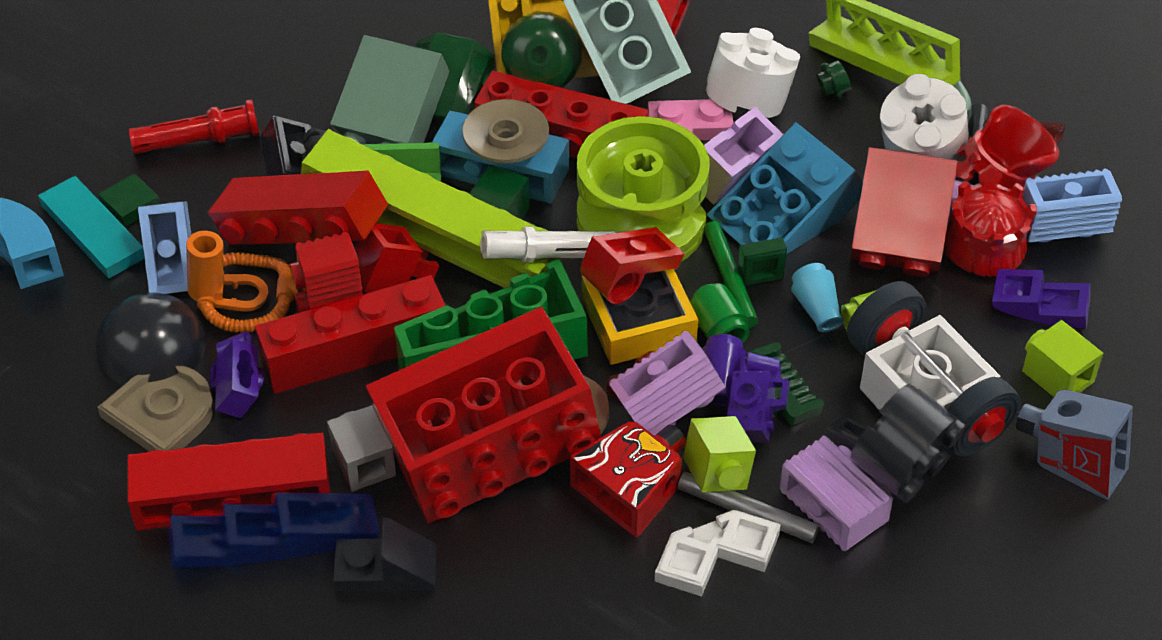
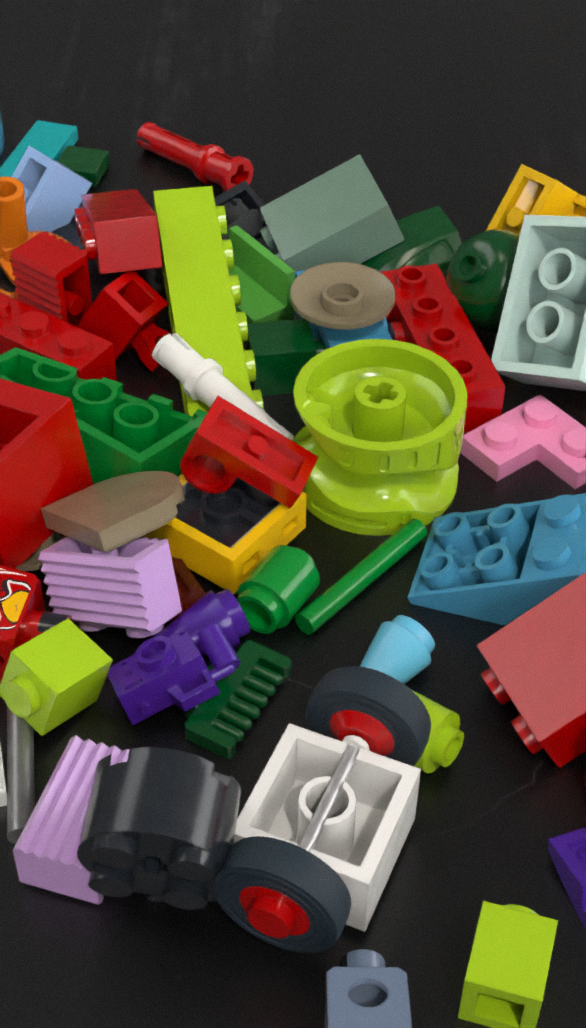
camera: 55 degrees right, 5 degrees down
(621, 345) = (117, 509): none -> dark tan tile
(737, 151) = (501, 473): lavender brick -> none
(762, 261) = (393, 584): dark green tile -> none

